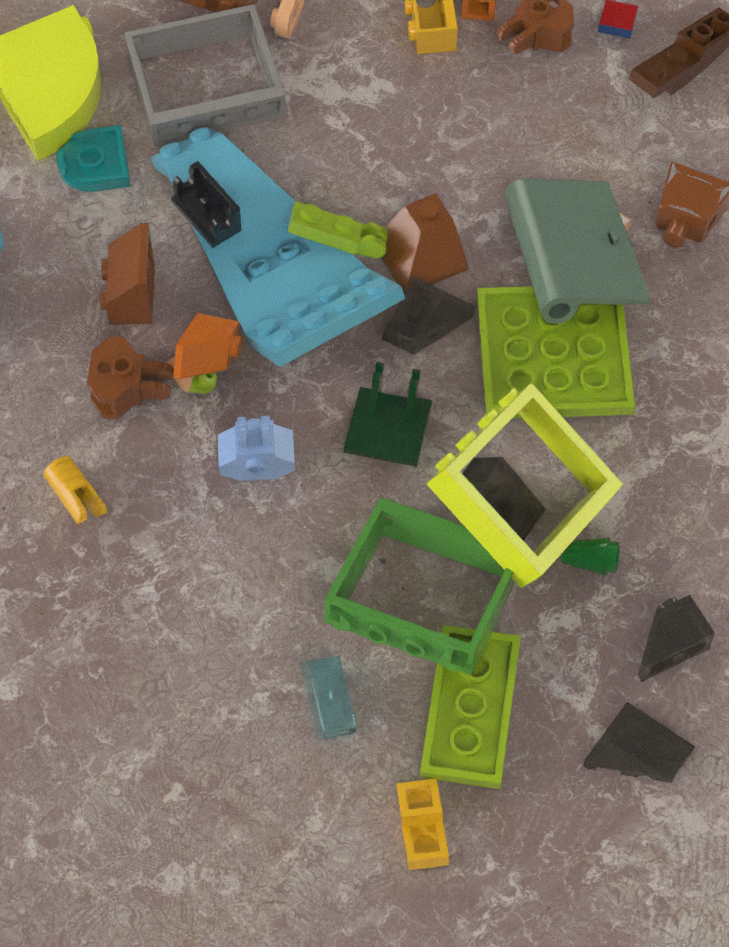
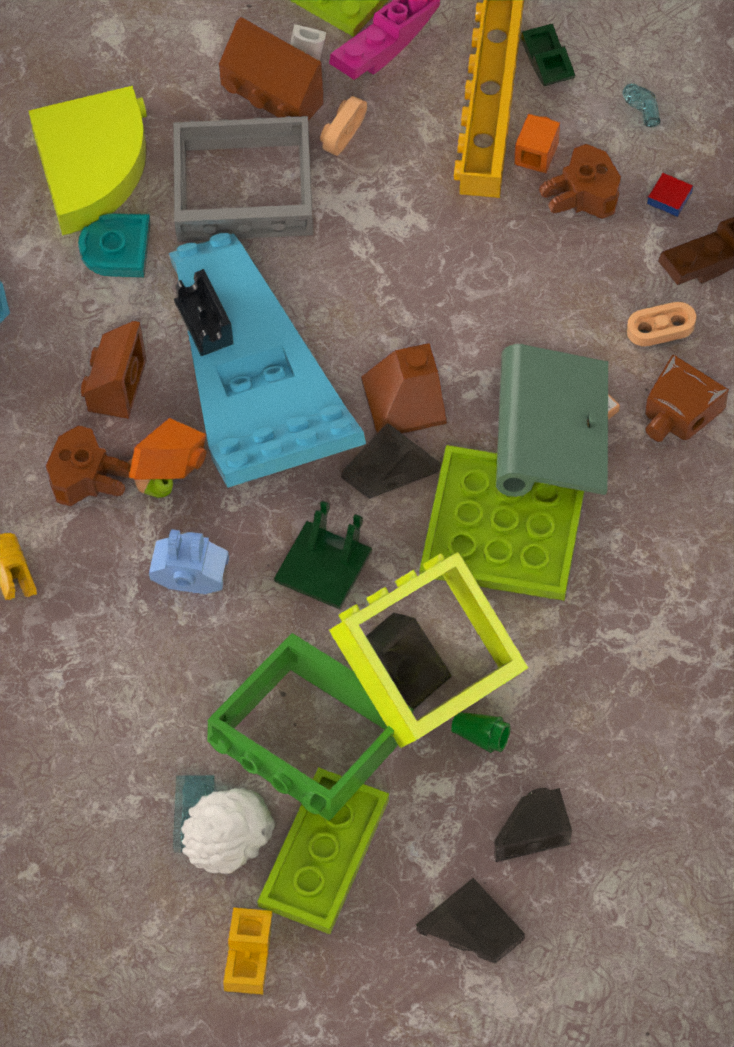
camera: 15 degrees right, 0 degrees up
(337, 231) = (324, 362): lime hinge -> none
(368, 707) = (226, 830): none -> white hair
(645, 139) = (660, 325): none -> light nougat plate

